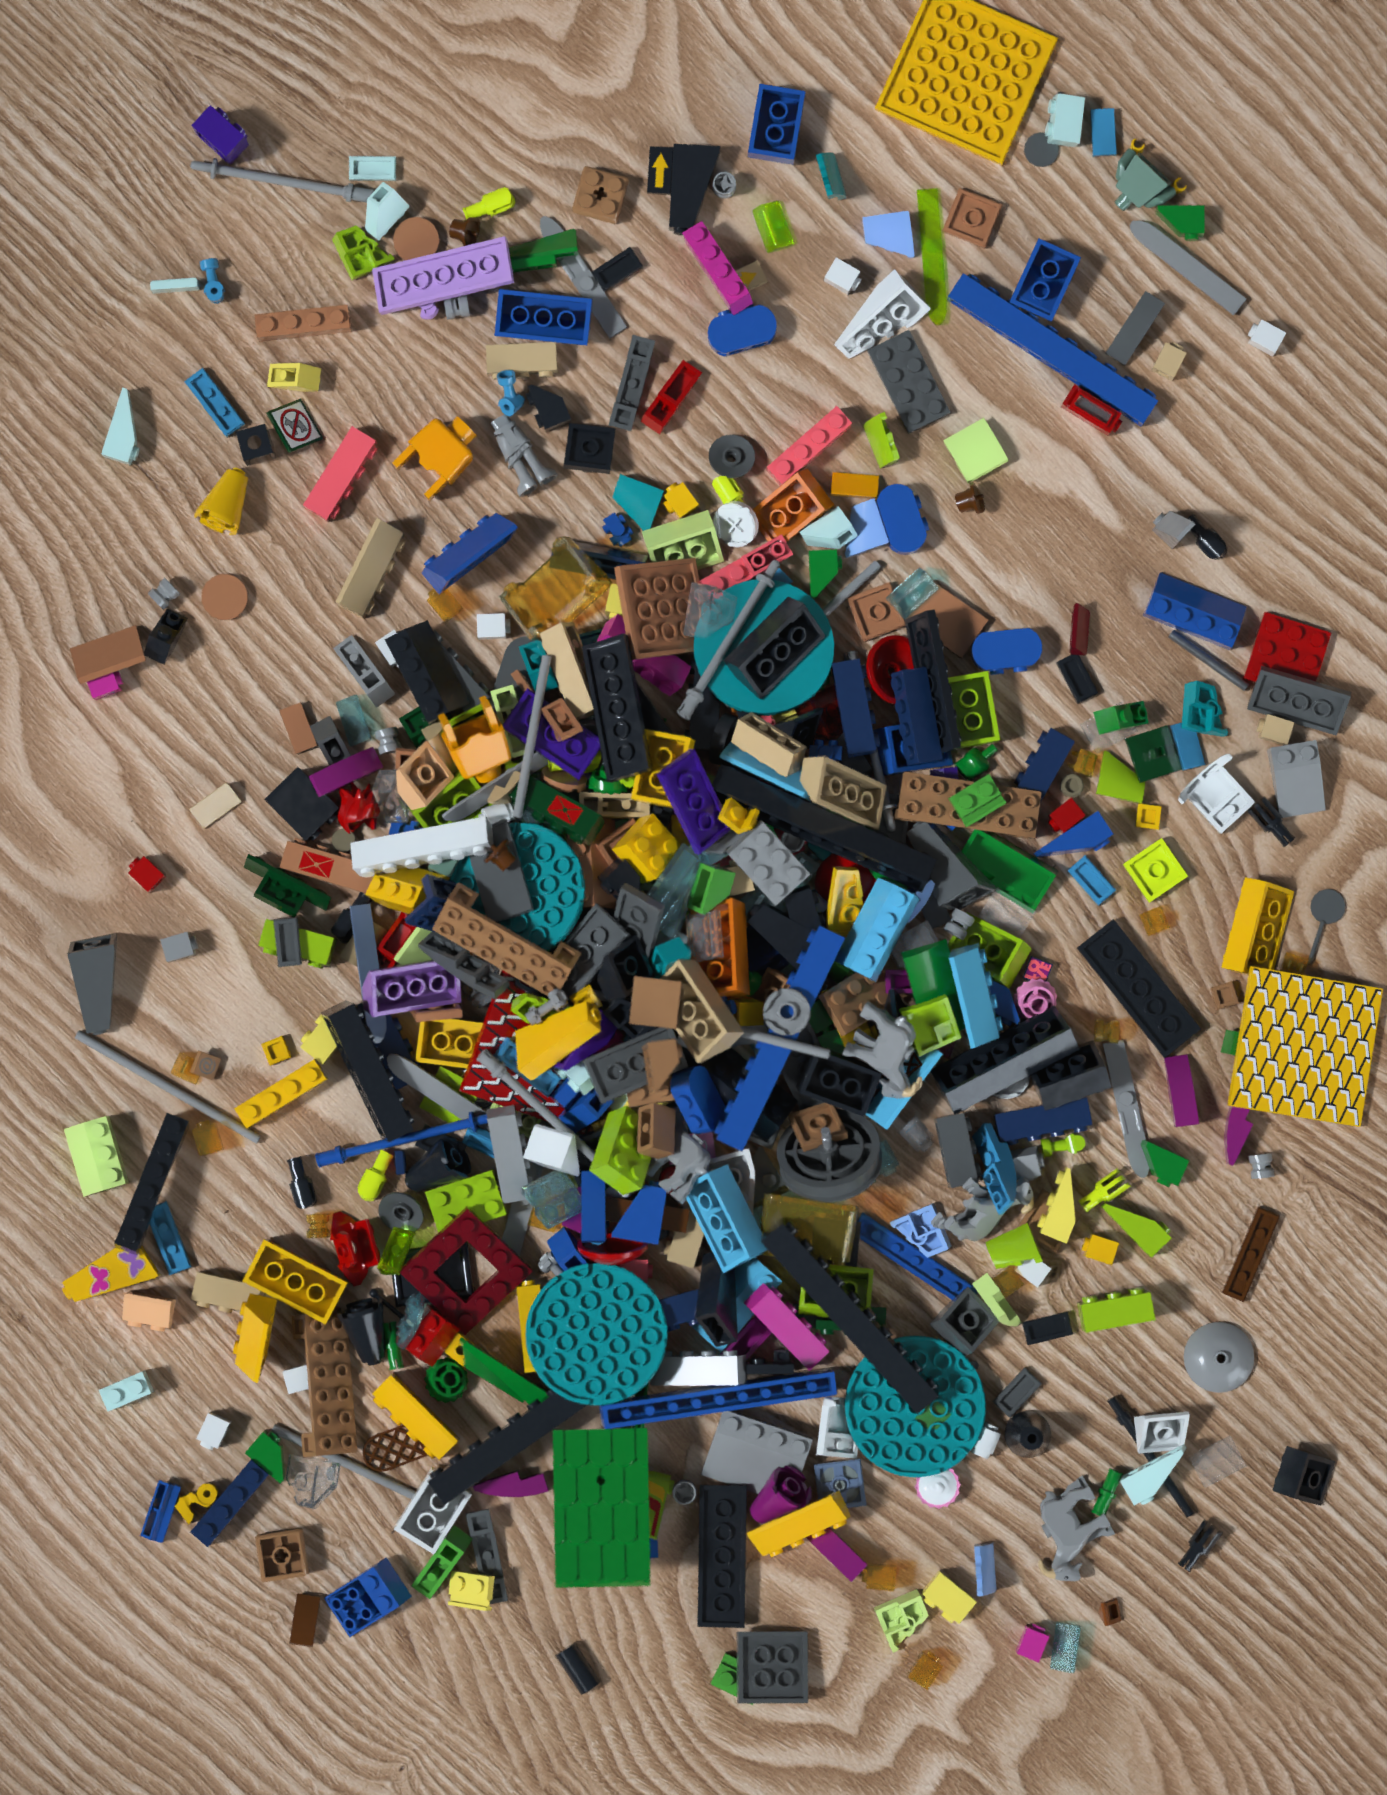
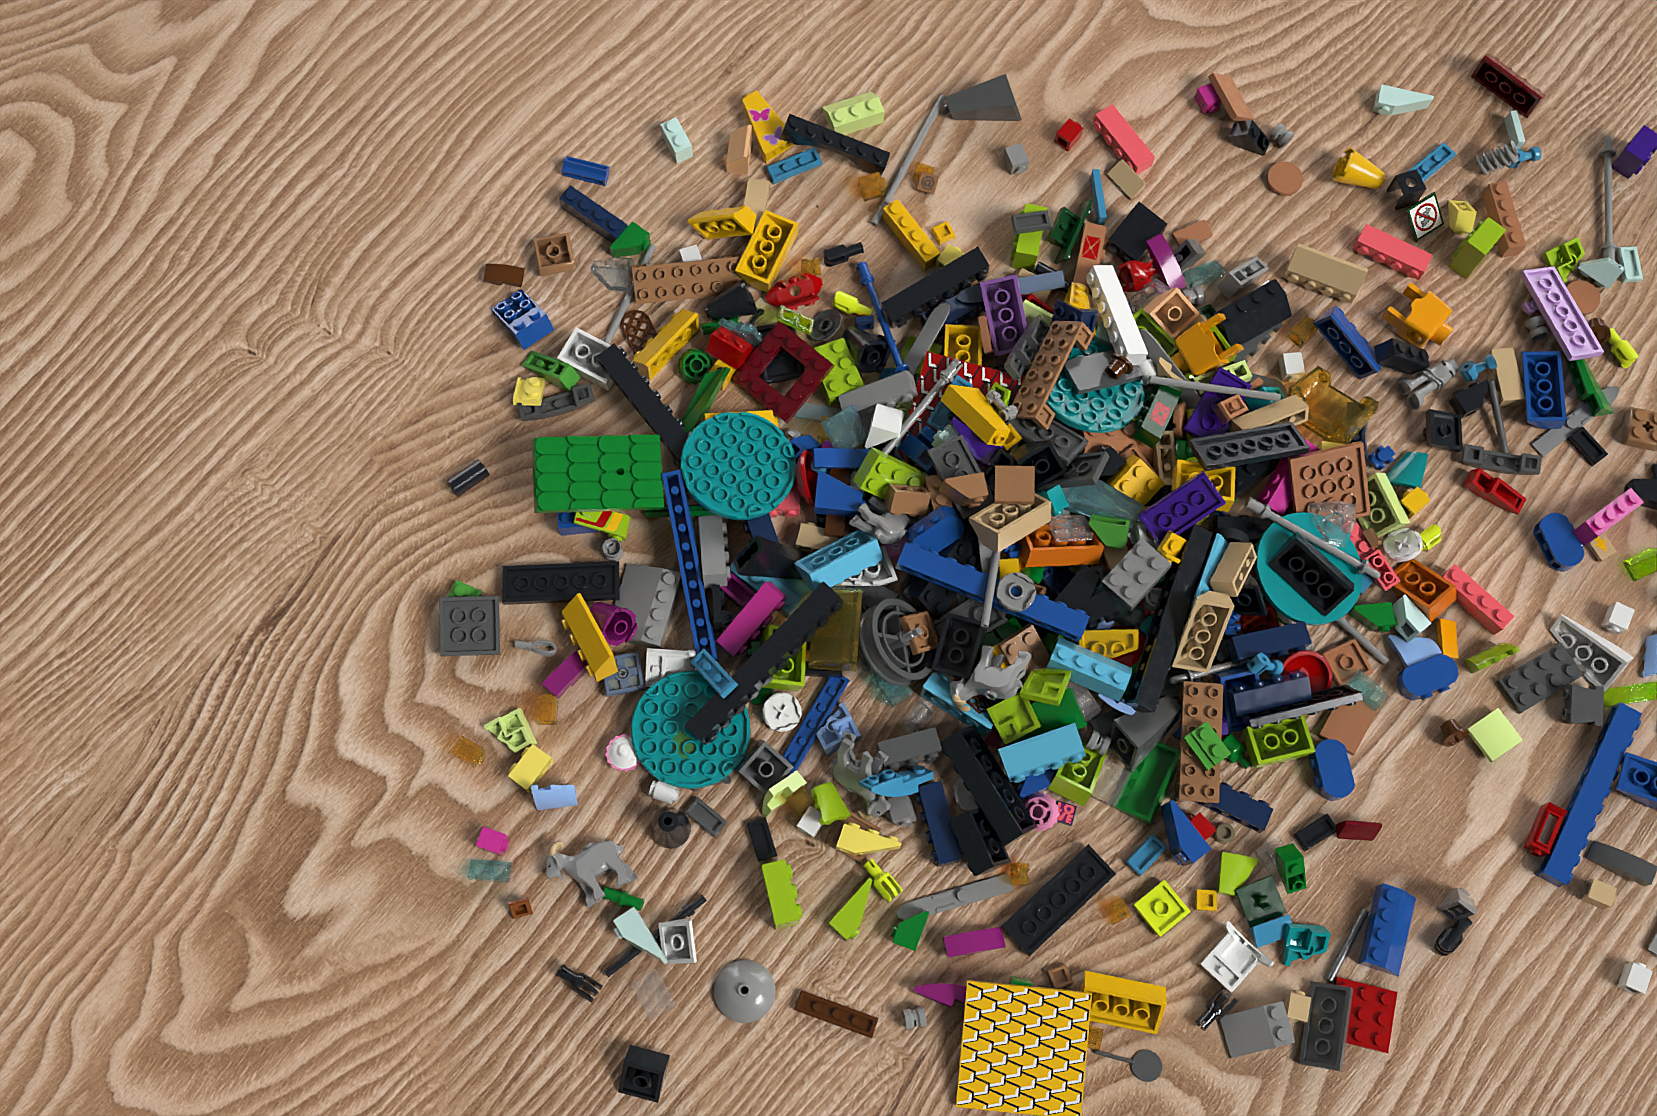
camera: 85 degrees right, 15 degrees down
(107, 282) = (1508, 85): none -> dark red slope
(159, 803) = (1123, 139): none -> coral brick
(205, 1496) = (591, 185): yellow leg -> none
(213, 1431) = (648, 202): white brick -> none
(218, 318) = (1498, 158): none -> light grey piece
(240, 845) = (1098, 197): none -> dark azure tile
(350, 370) = (1476, 247): none -> lime brick
(493, 490) = (1401, 356): none -> black brick
(513, 1486) = (613, 414): magenta slope -> none
(575, 377) = (1498, 417): none -> flat silver bar
(725, 560) = (1372, 537): none -> medium nougat tile
(731, 447) = (1456, 539): dark grey dish -> none
(798, 1595) = (530, 646): none -> light grey piece
(857, 1376) = (713, 673): none -> dark azure tile
(882, 723) = (1262, 662): none -> dark azure leg
(898, 1296) = (781, 712): none -> white tile
(899, 985) = (1046, 685): none -> lime plate
(947, 340) = (1583, 705): none -> dark grey hips
(1071, 1143) = (921, 850): lime leg -> none
(1085, 762) = (1246, 842): clear yellow tile -> none
(1100, 1248) = (832, 879): yellow brick -> none

